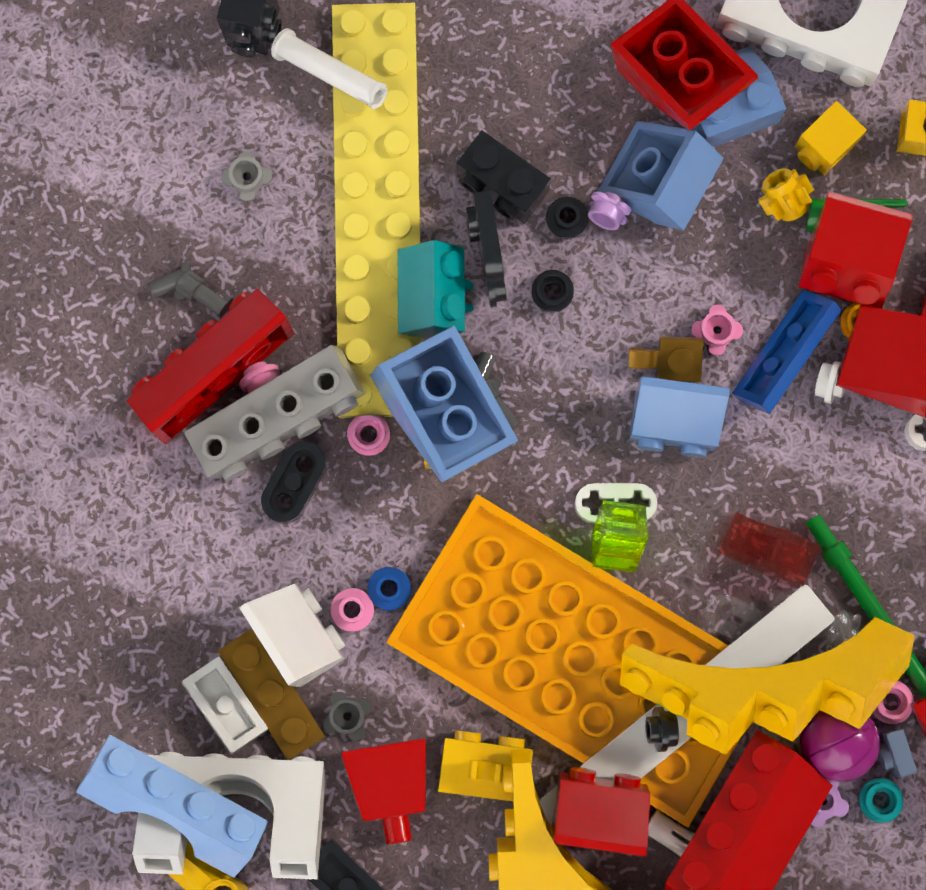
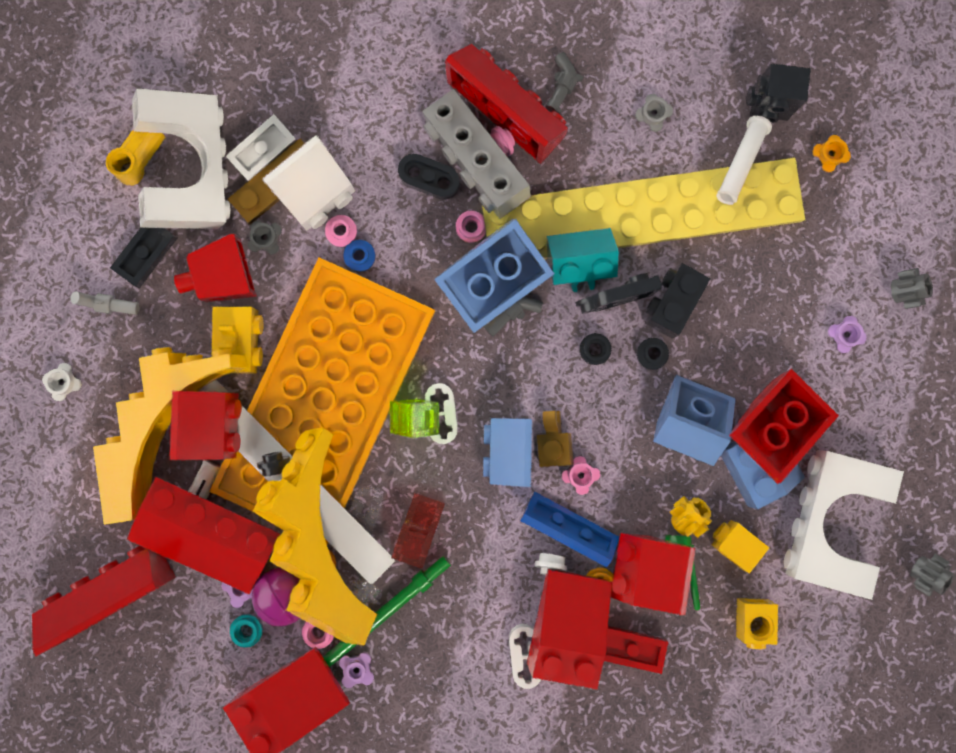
camera: 80 degrees right, 5 degrees up
(134, 782) = (186, 92): light blue arch -> none
(608, 210) = (661, 383): lavender plate -> none
(895, 753) = (279, 638): sand blue plate -> none

